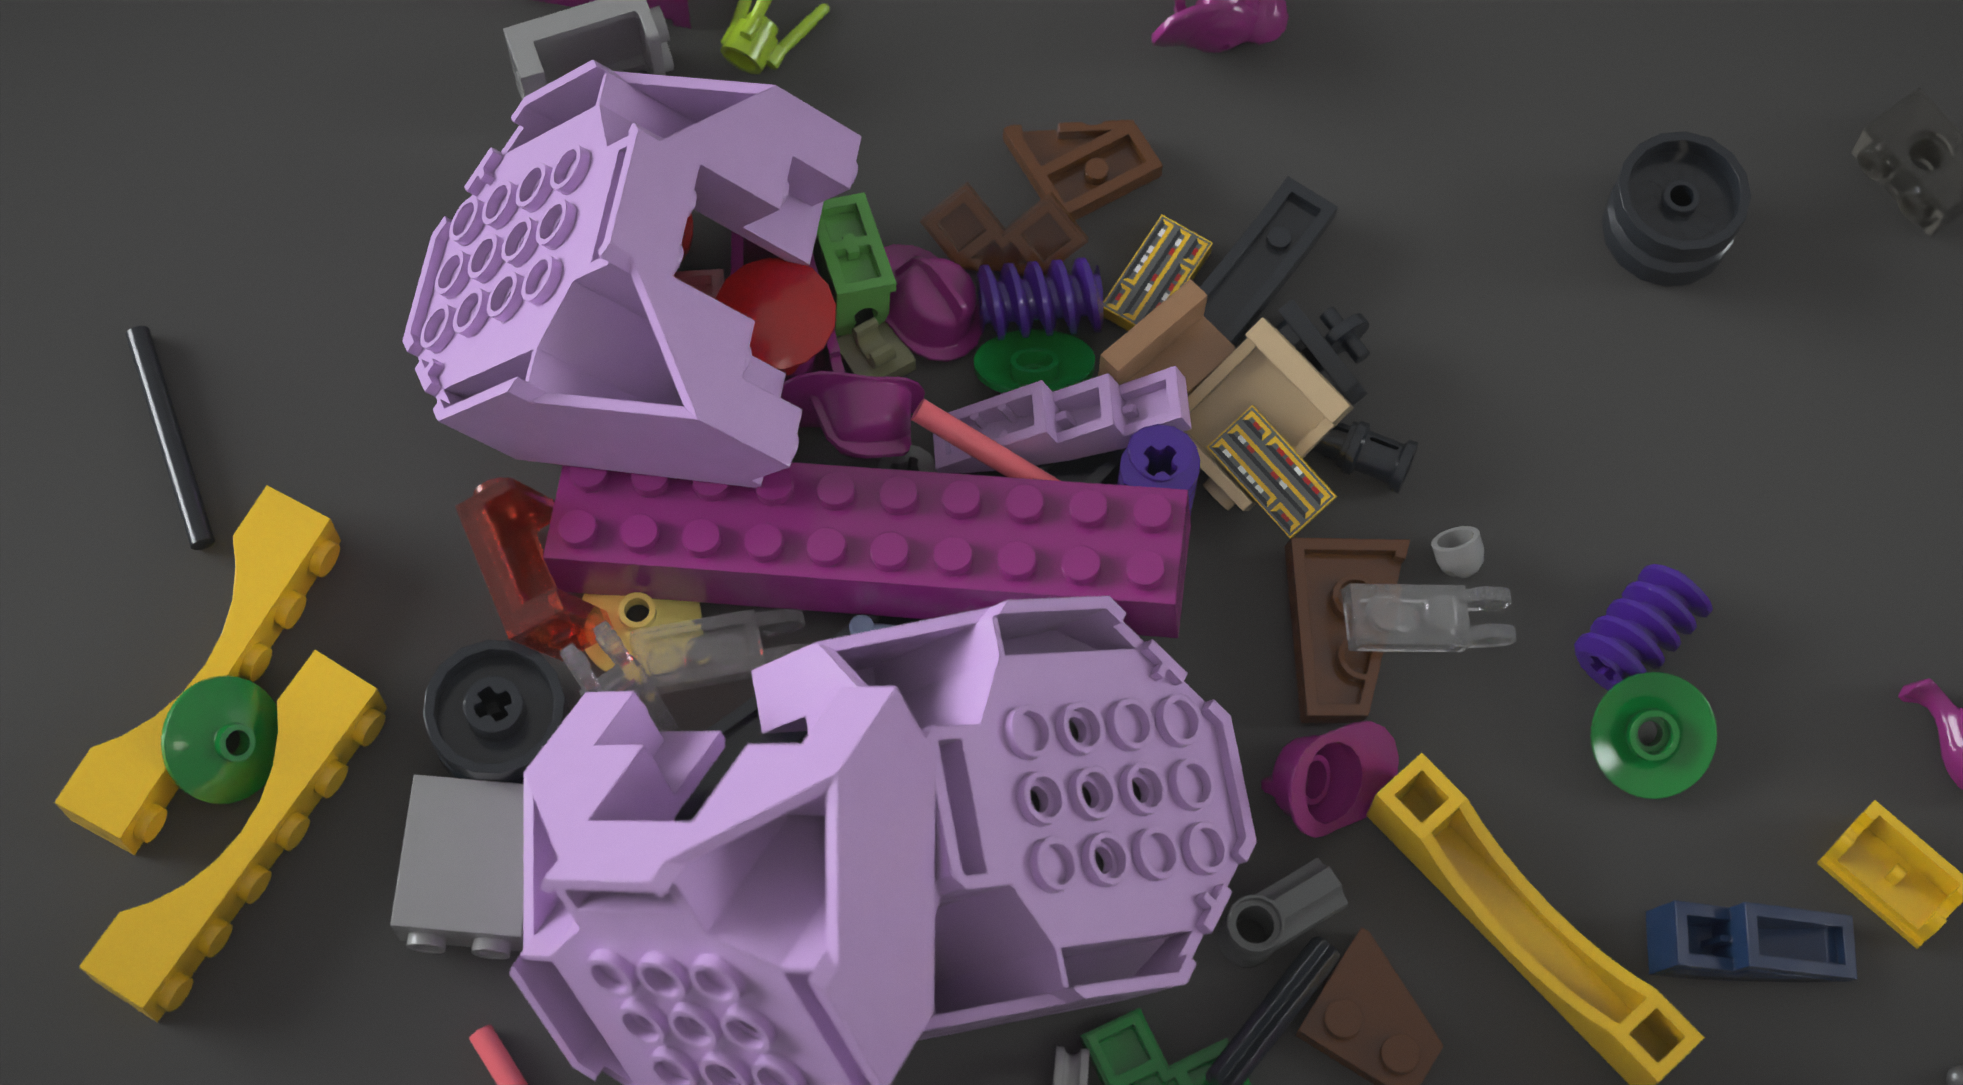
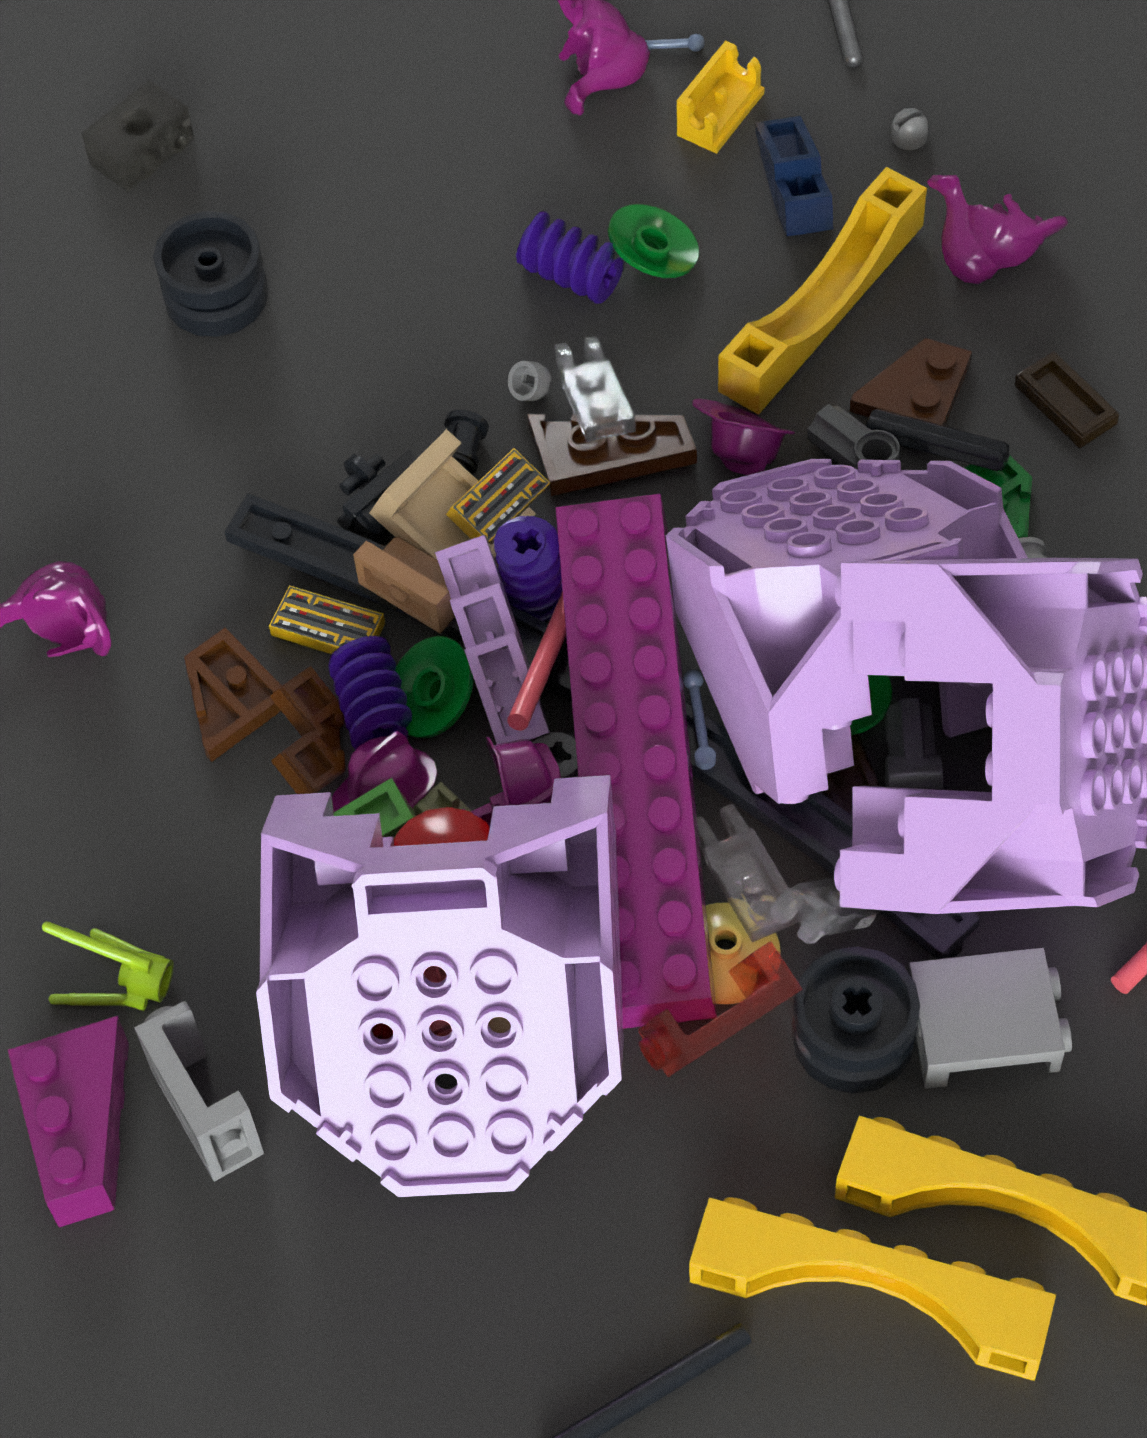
camera: 95 degrees left, 10 degrees down
(197, 735) = (936, 1242): green dish -> none

